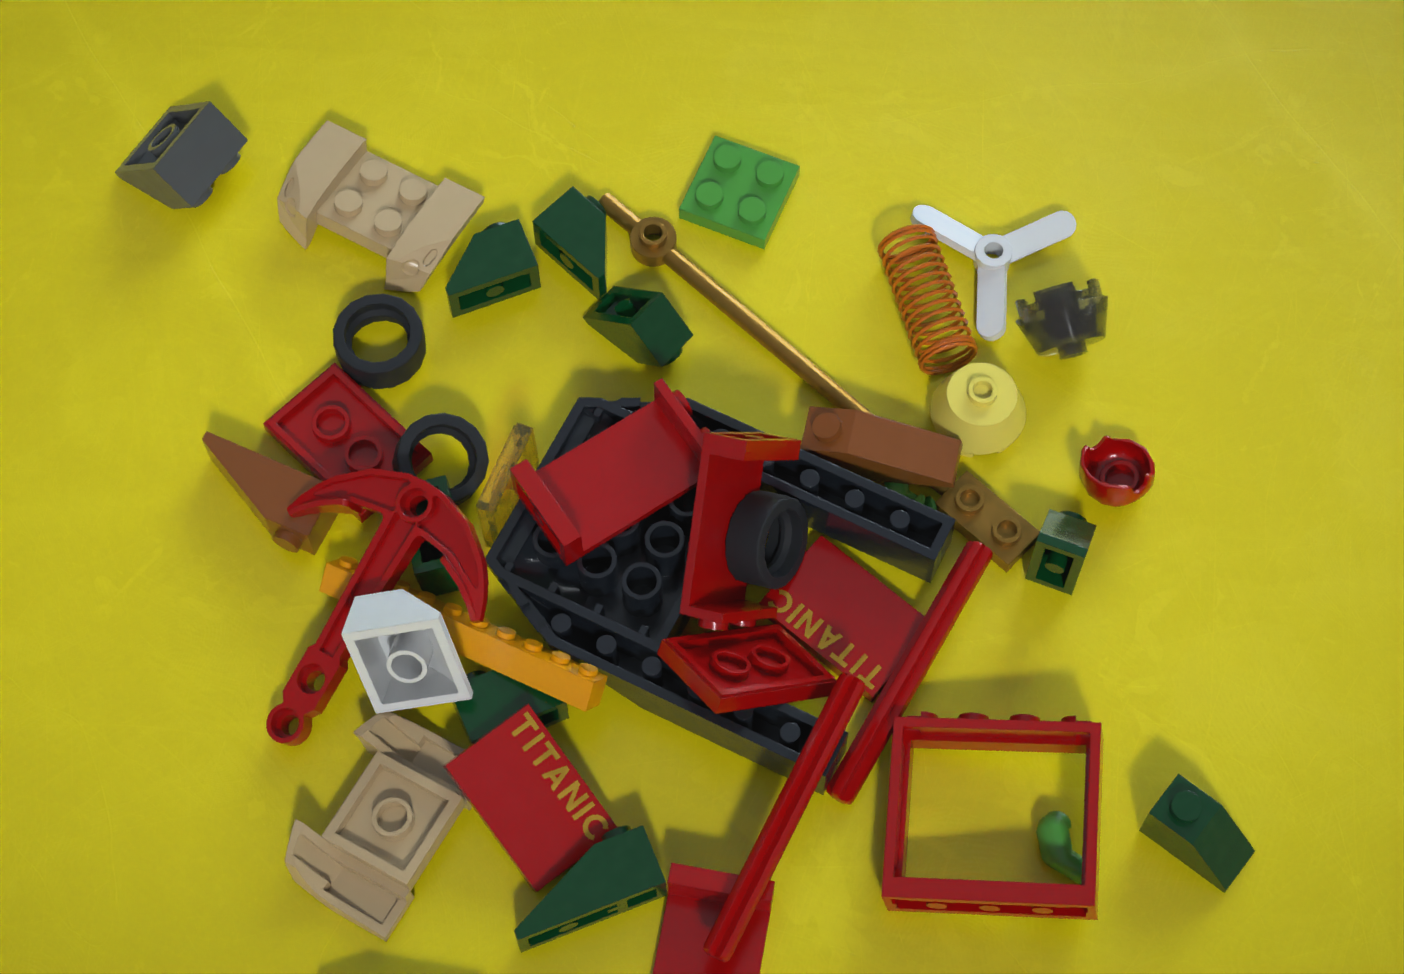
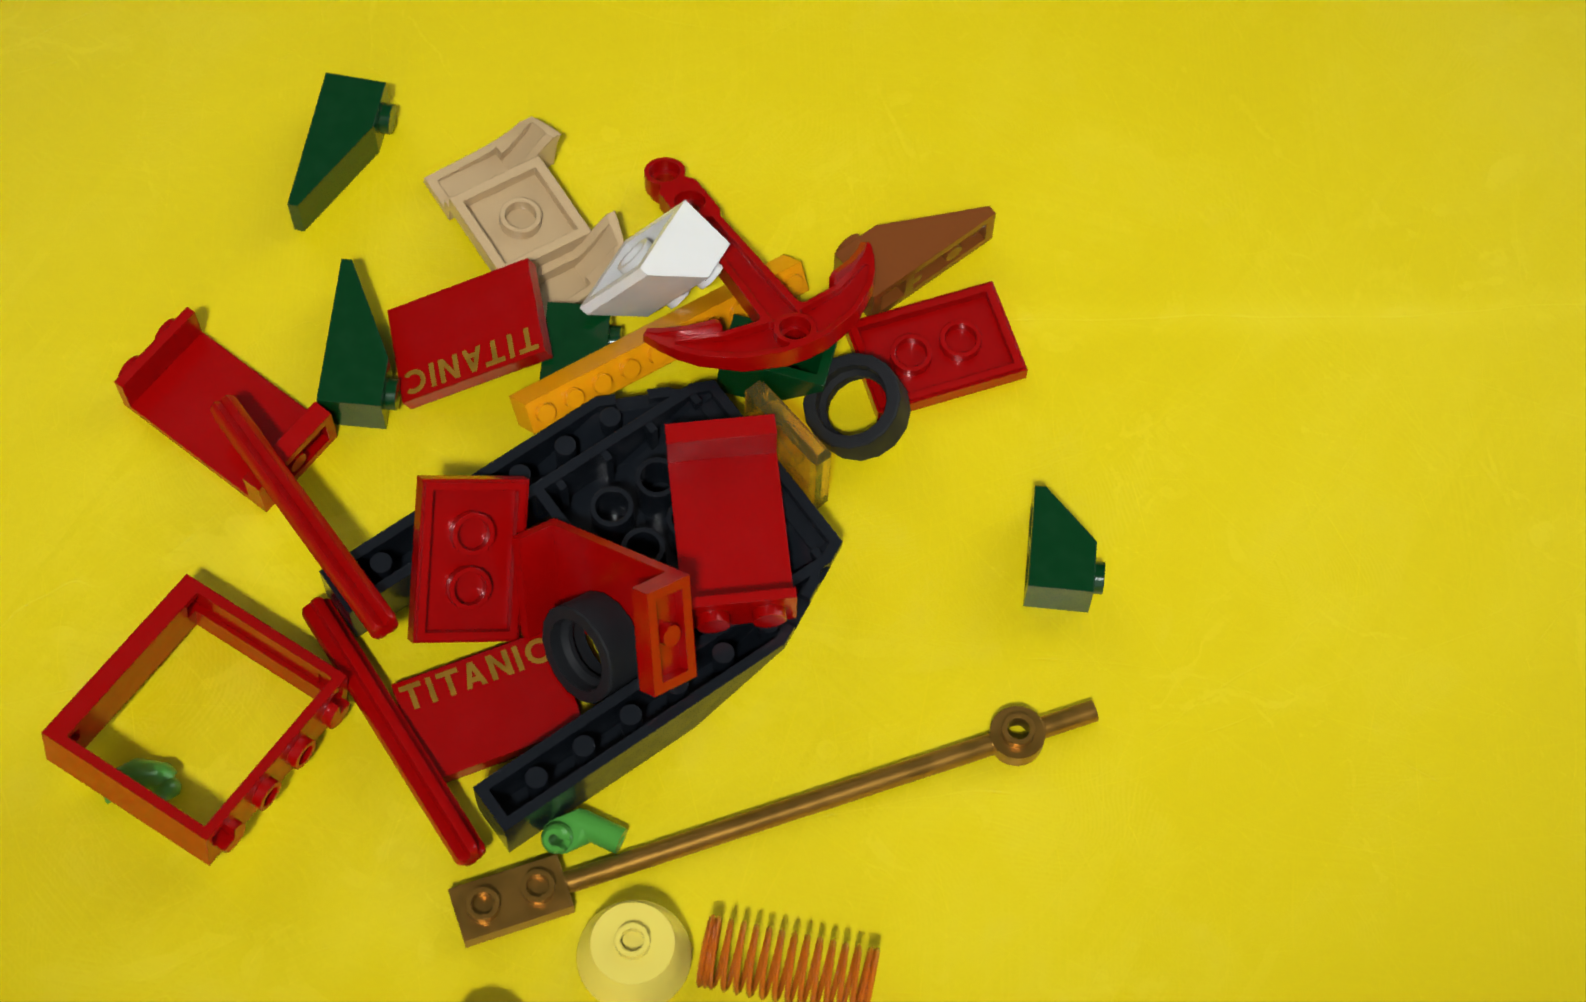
camera: 115 degrees right, 0 degrees up
(183, 155) = (1342, 325): dark grey slope -> none
(374, 205) = (1195, 479): tan piece -> none
(375, 309) = (1028, 380): black tyre -> none
(576, 238) = (1047, 654): dark green slope -> none
(640, 325) = (915, 663): dark green slope -> none
(739, 192) = (1034, 854): bright green plate -> none
(881, 447) = (637, 816): dark orange slope -> none
(1060, 550) = (426, 939): dark green slope -> none
(1198, 833) = (69, 908): dark green slope -> none

